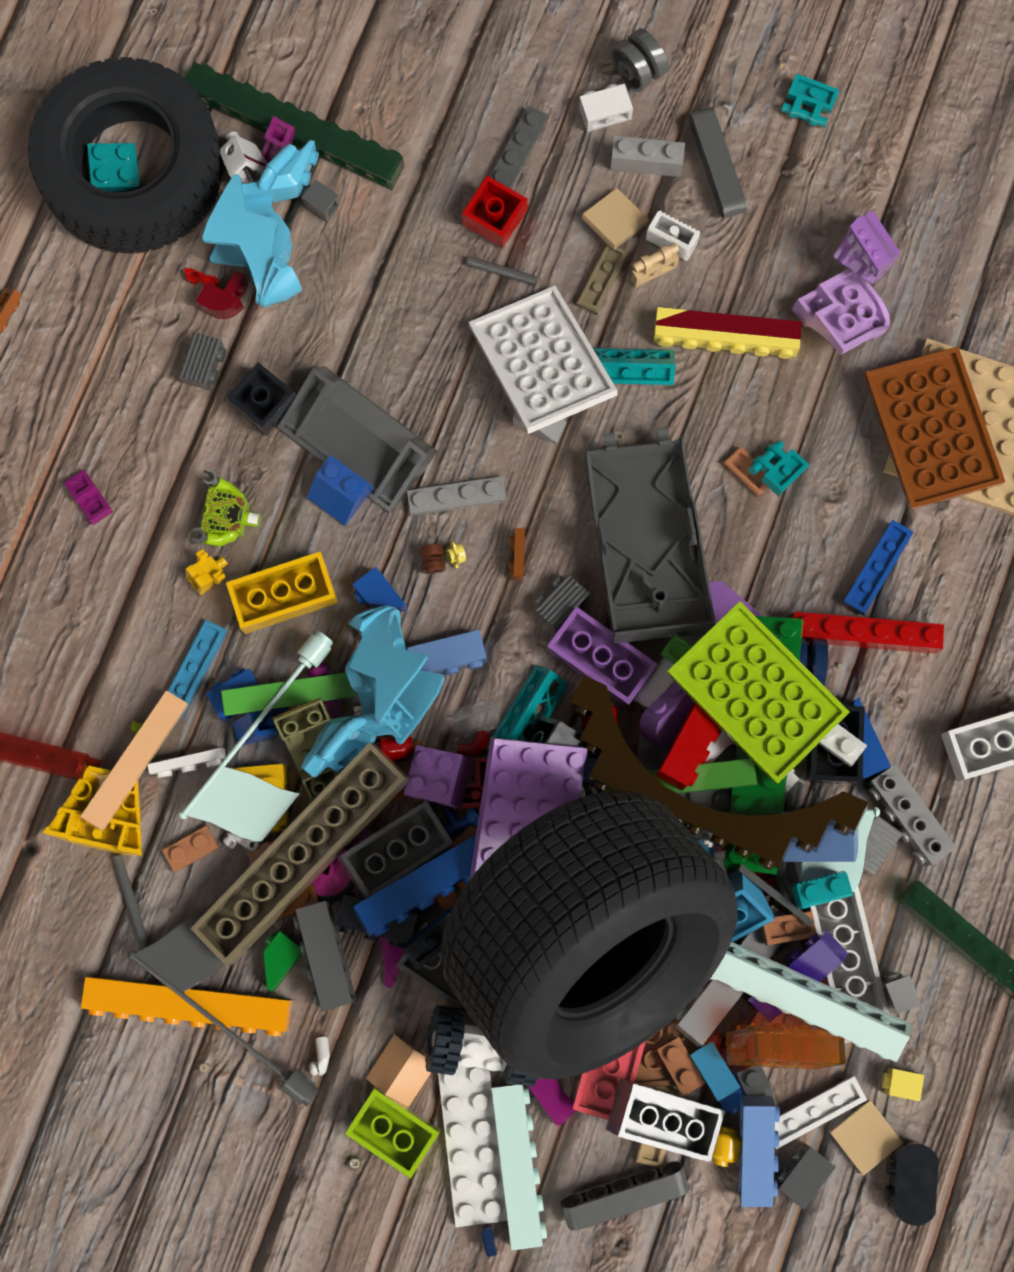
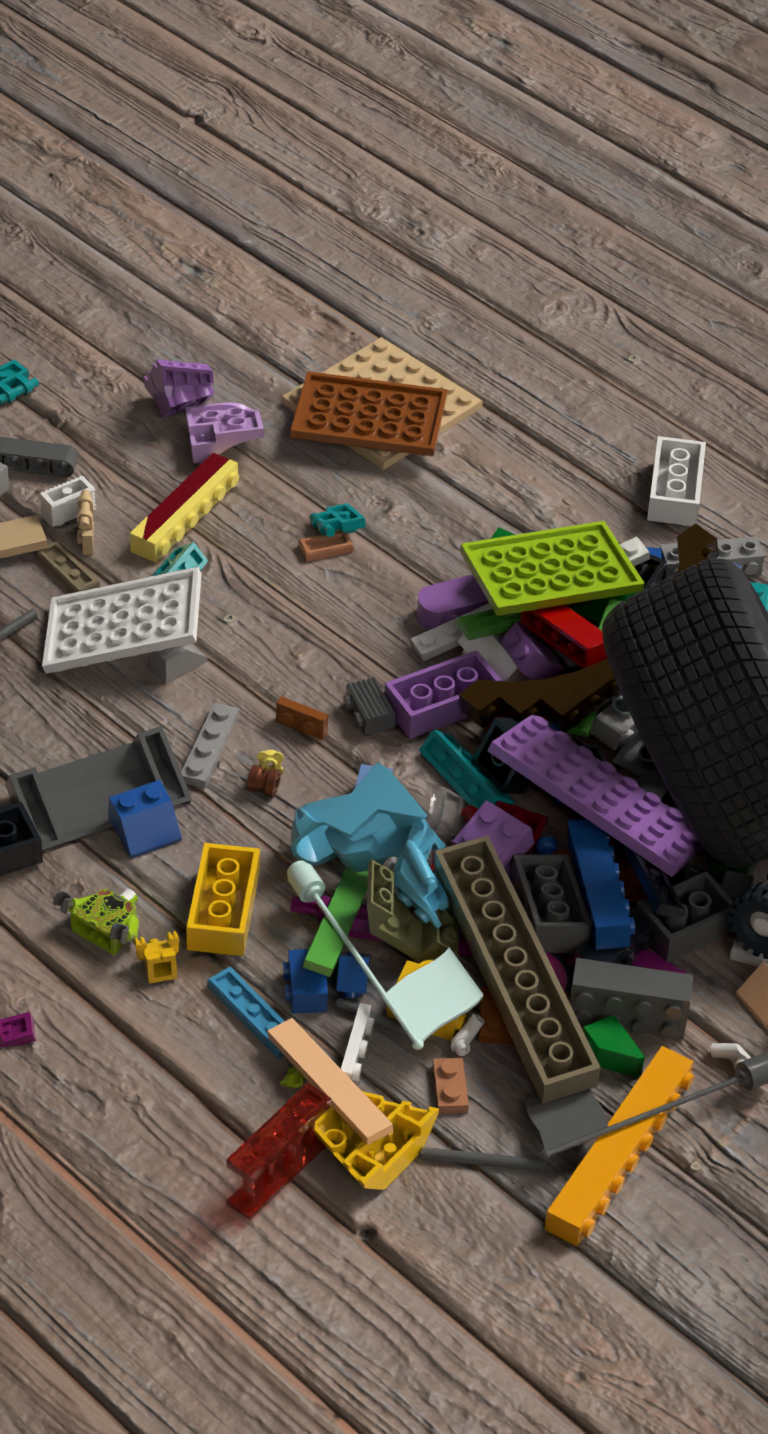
camera: 70 degrees left, 35 degrees down
(377, 591) = (270, 830): blue slope -> none
(649, 540) = (351, 614): dark grey piece -> none
(872, 632) = (542, 504): red brick -> none
(877, 567) = (471, 498): blue plate -> none

